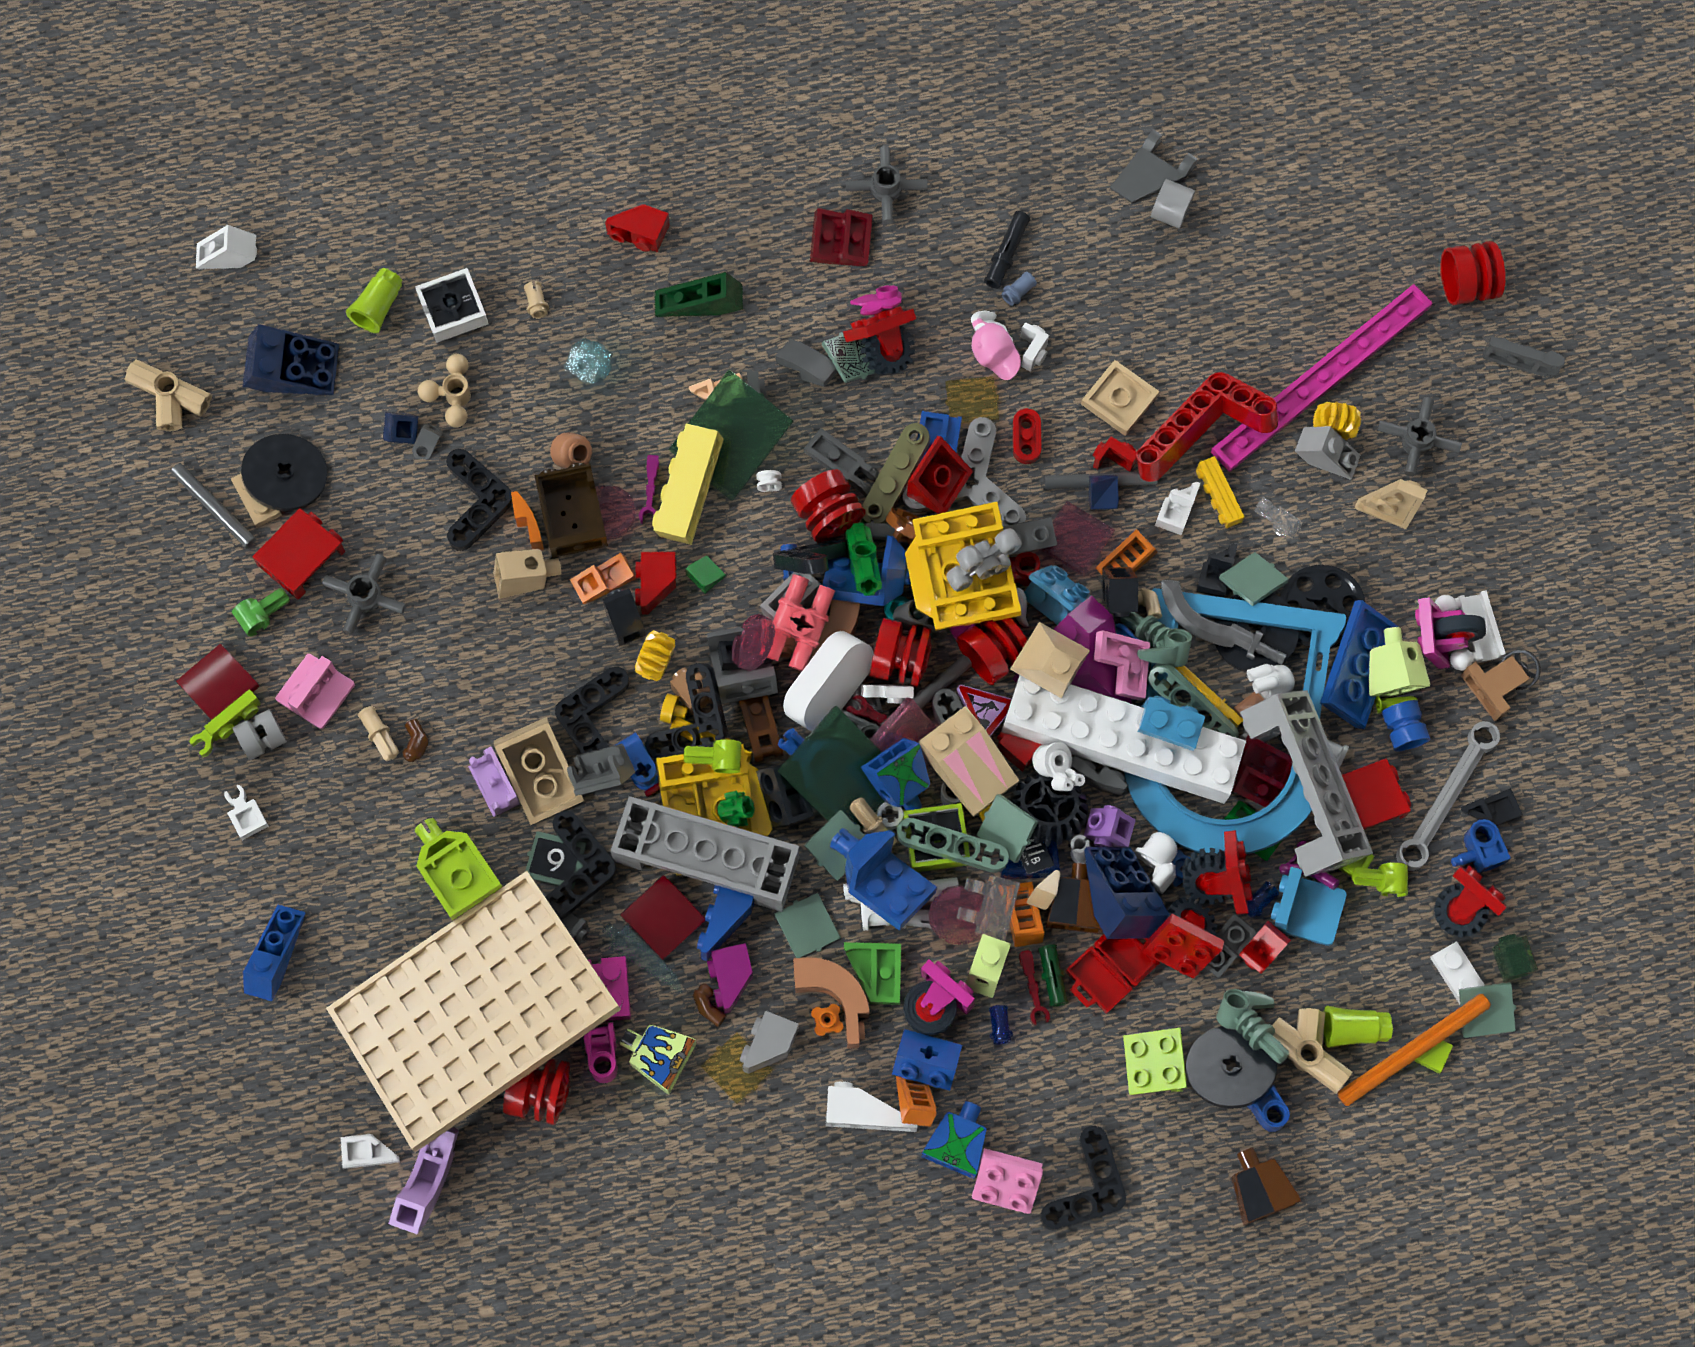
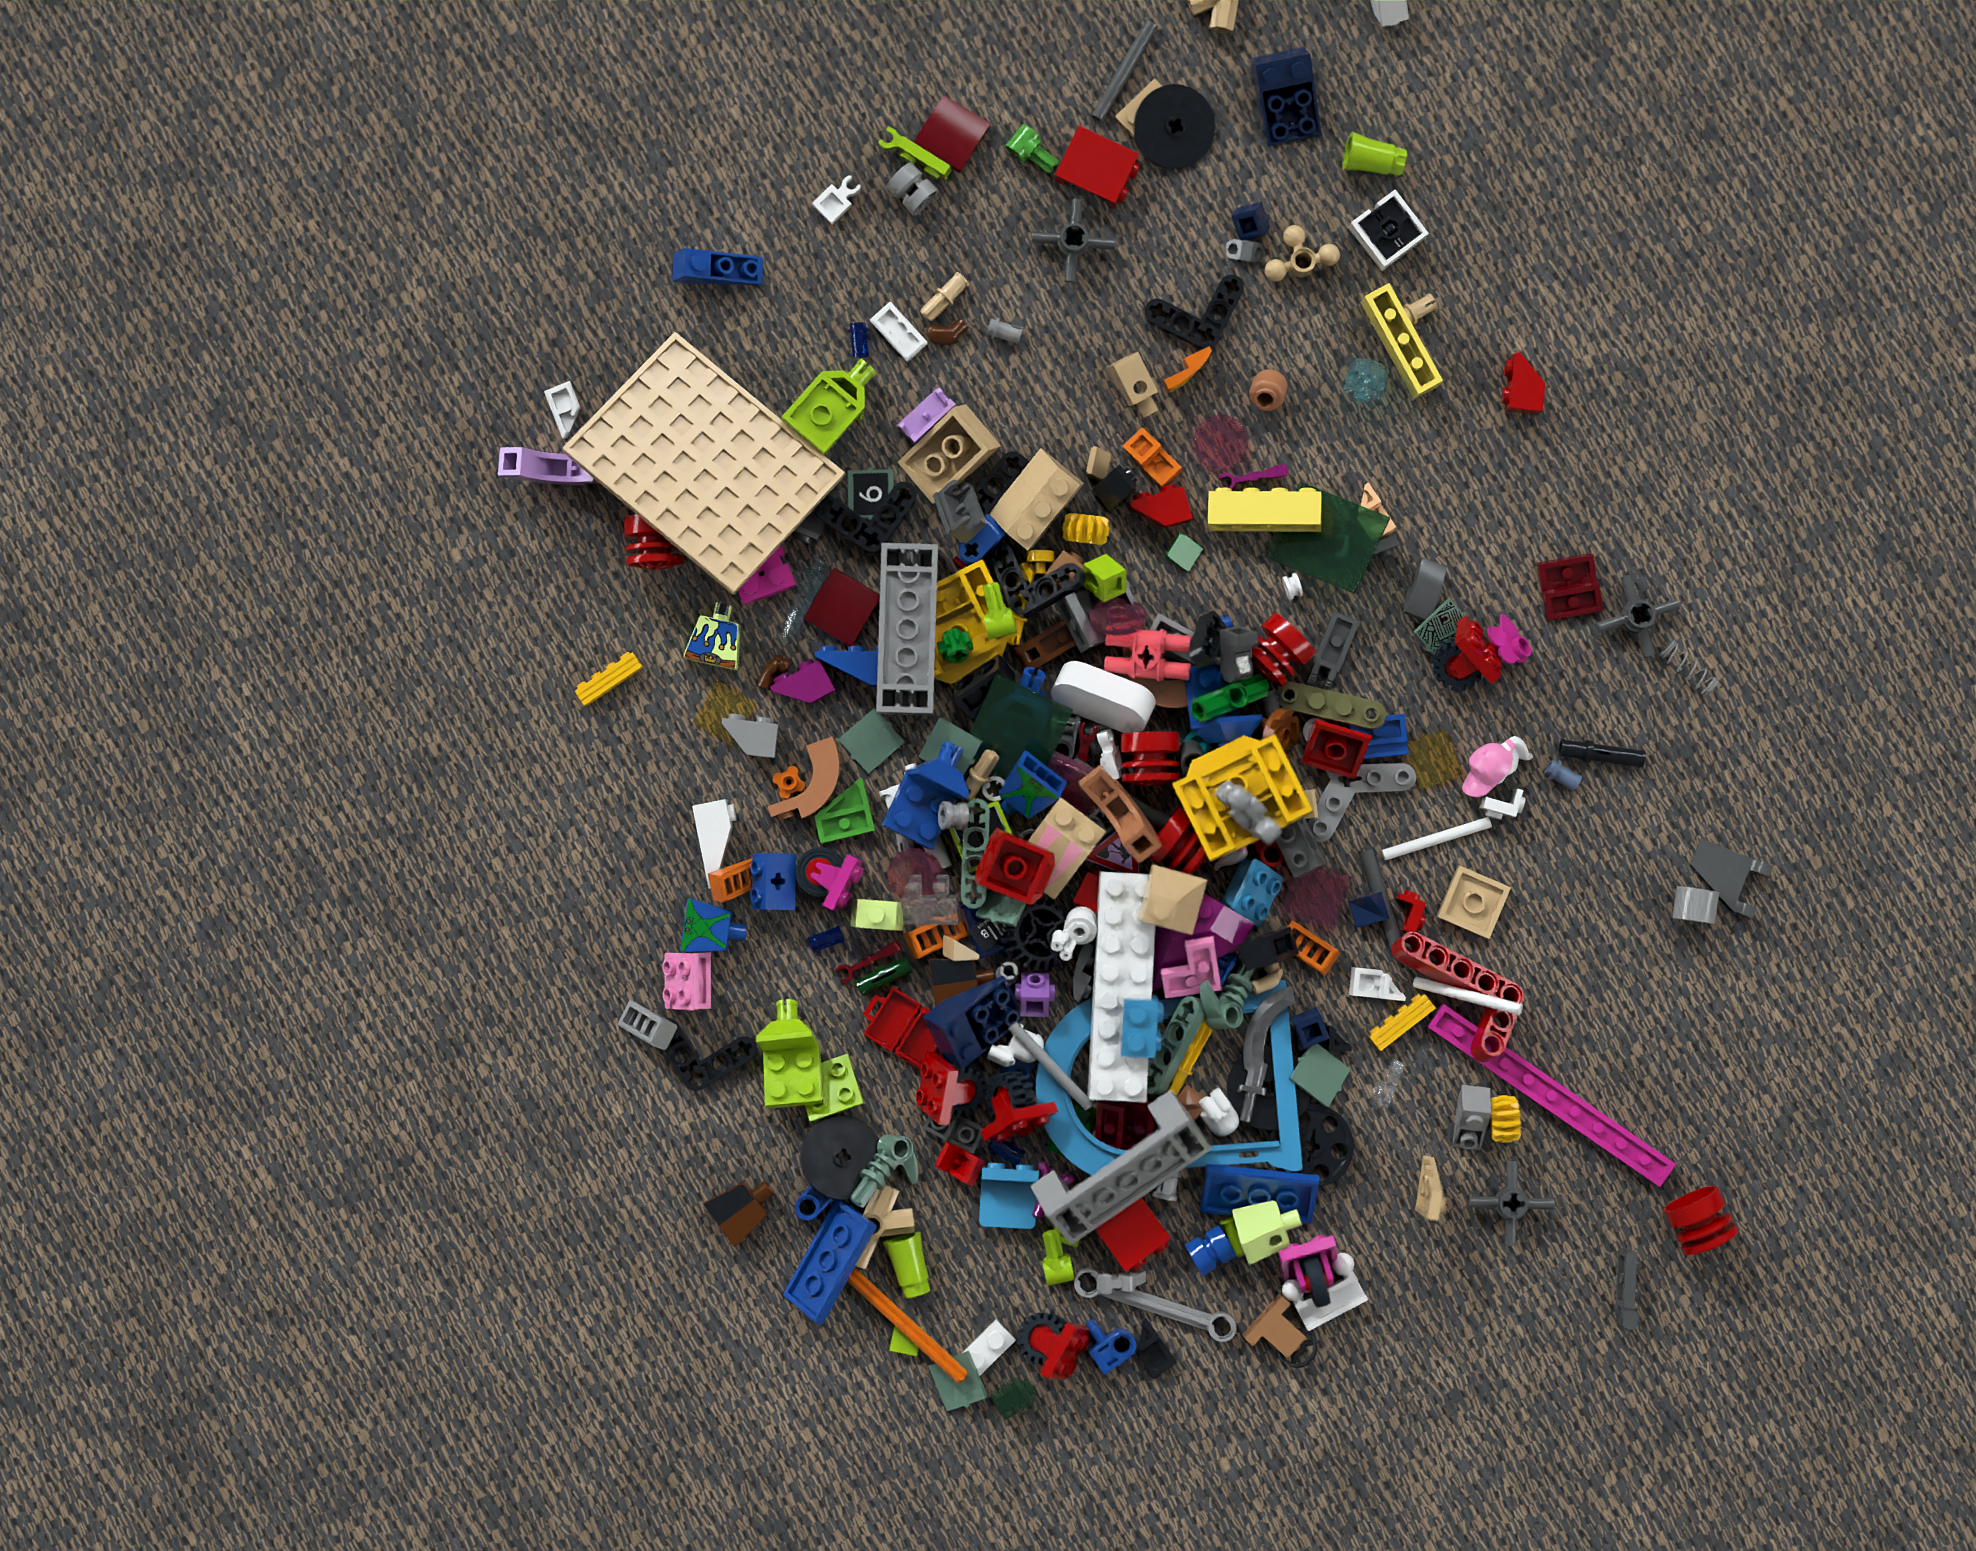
camera: 75 degrees right, 15 degrees up
(315, 690) = (969, 225): bright pink bracket -> none
(394, 829) = (859, 340): none -> clear blue pin
(399, 787) = (898, 331): none -> white plate
(432, 684) = (1004, 331): none -> light grey pin
(562, 319) = (1401, 341): none -> light yellow brick
(571, 510) = (1210, 417): dark brown piece -> none
(592, 631) = (1098, 463): none -> tan slope
(600, 1047) = (708, 590): dark pink piece -> none
(610, 694) = (1035, 499): none -> tan slope
(667, 1179) = (610, 678): none -> yellow piece
(700, 297) = (1464, 466): dark green slope -> none
(710, 646) = (1105, 578): none -> lime brick
(821, 538) = (1236, 653): none -> dark grey leg
(908, 854) = (953, 815): none -> light grey wheel
(923, 164) = (1712, 684): none -> light grey piece
(951, 687) = (1123, 812): none -> nougat arch
(977, 805) = (1015, 867): none -> red slope
(1026, 438) = (1407, 821): red plate -> none
(1049, 416) = (1436, 838): none -> white bar
(1057, 1221) = (661, 1032): none -> light grey slope
(1118, 1091) = (790, 1060): none -> lime plate
(1186, 828) = (1050, 1065): none -> light grey bar
(1206, 573) = (1310, 1027): none -> dark blue slope
(1210, 421) = (1467, 995): none -> white bar
(1336, 1105) = (829, 1261): none -> blue tile
(1418, 818) = (1123, 1280): none -> light grey piece

